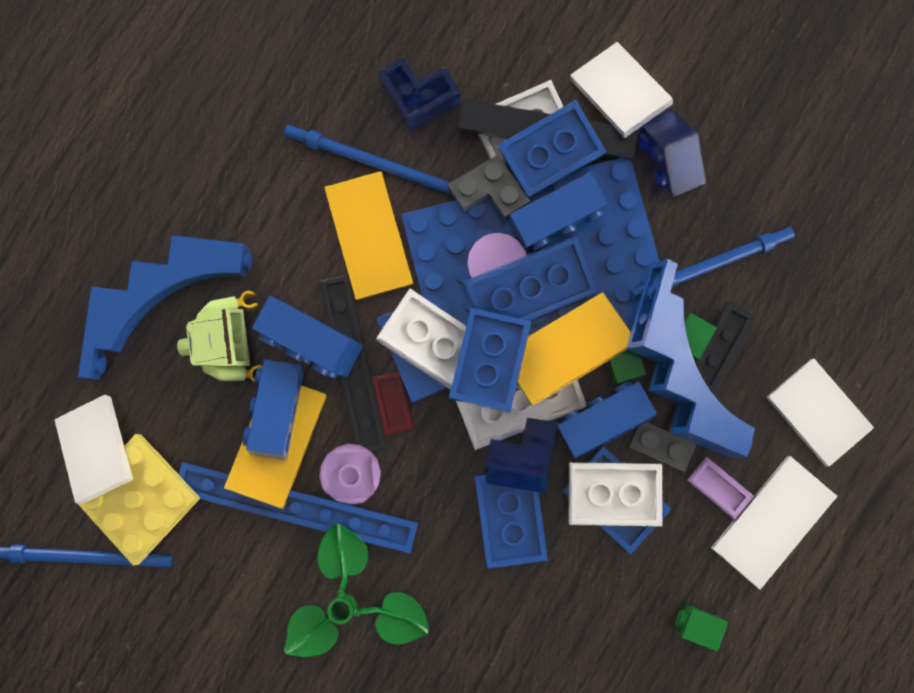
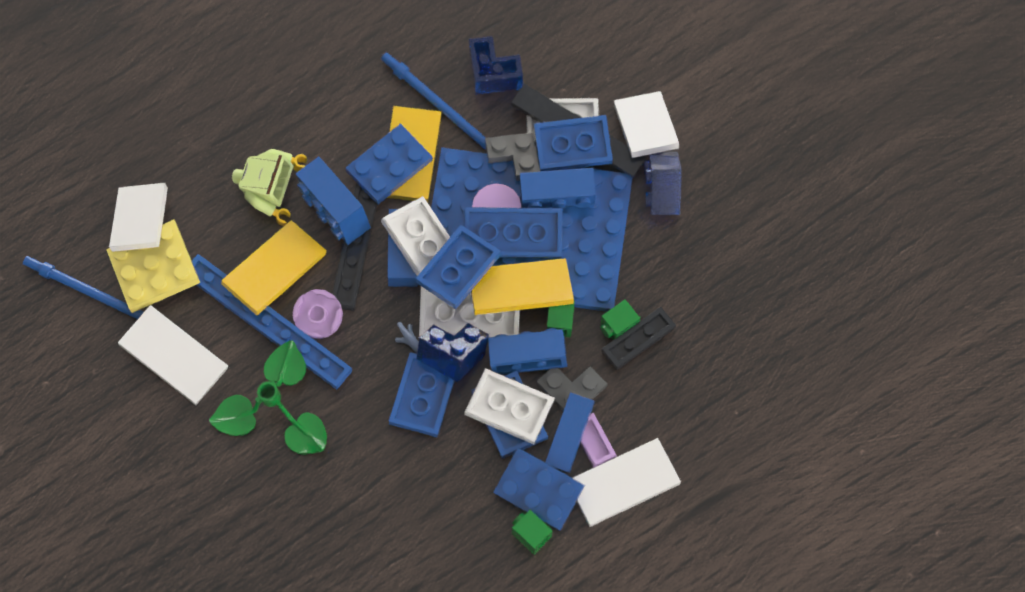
camera: 20 degrees right, 15 degrees down
(115, 312) = (202, 130): blue arch -> none
(208, 594) = (173, 355): none -> white tile
(273, 409) = (283, 241): blue brick -> none
(351, 260) = (389, 164): none -> blue plate
(392, 403) = (372, 279): dark red tile -> none
(465, 457) = (408, 338): none -> sand blue bar
(662, 337) = (592, 305): arch -> none
(688, 573) = (539, 488): none -> blue plate
(693, 493) = (570, 432): none -> blue tile
(761, 244) = (706, 277): blue bar -> none
(820, 412) = (695, 417): white tile -> none

